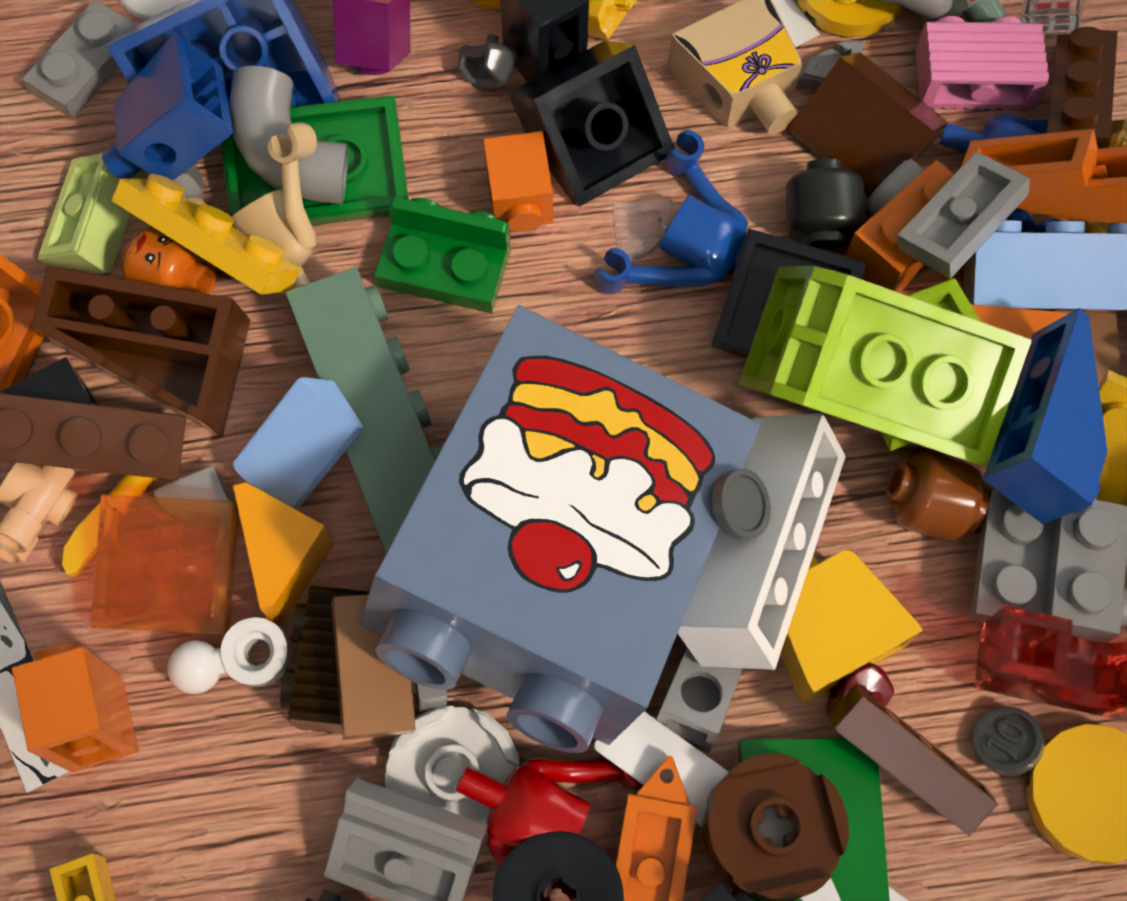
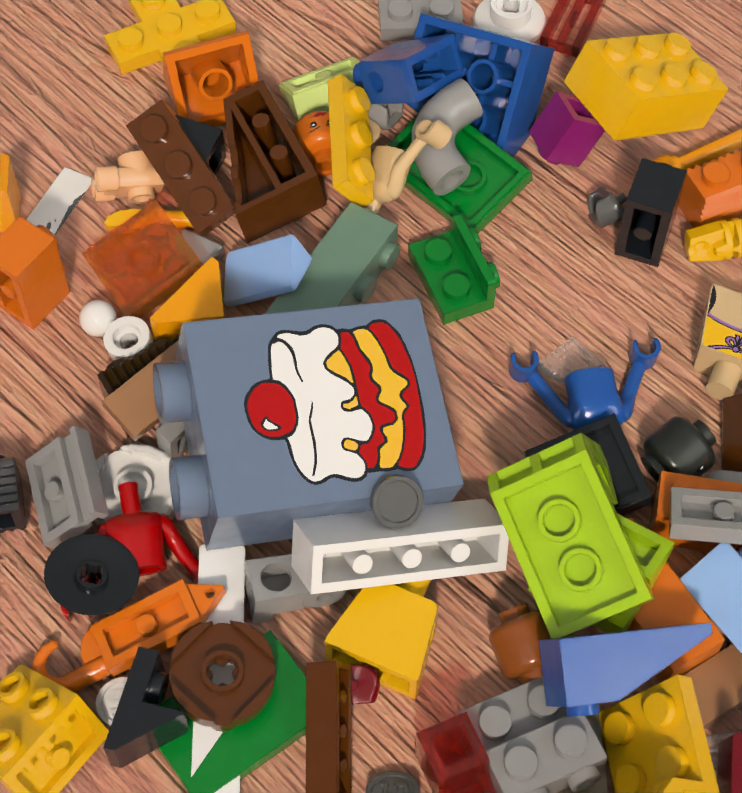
camera: 55 degrees right, 10 degrees down
(519, 180) = (537, 274): orange brick -> none
(595, 119) = (616, 288): black slope -> none

